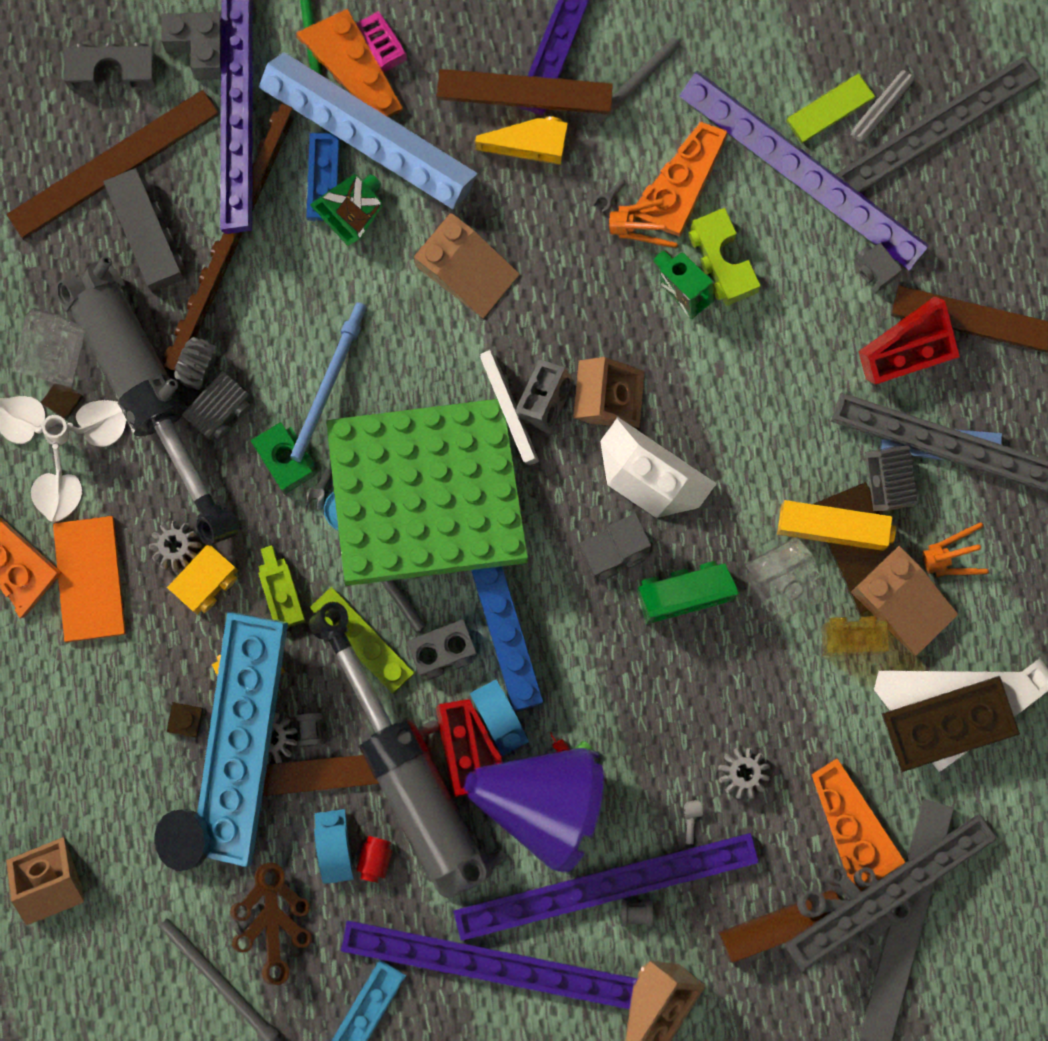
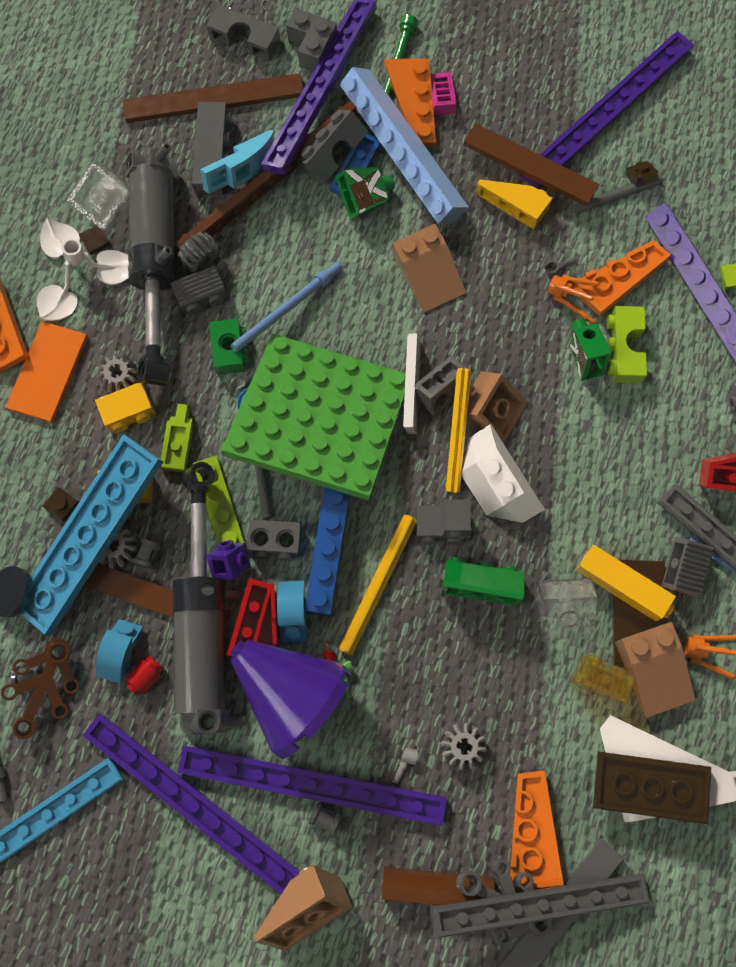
camera: 30 degrees right, 5 degrees down
(198, 234) = (239, 166): none -> medium azure slope
(277, 188) = (317, 157): none -> dark grey arch
(406, 695) = (228, 560): none -> dark purple brick
(575, 646) = (377, 585): none -> yellow axle
(585, 439) = (458, 430): none -> yellow axle
(653, 45) = (641, 173): none -> dark brown plate

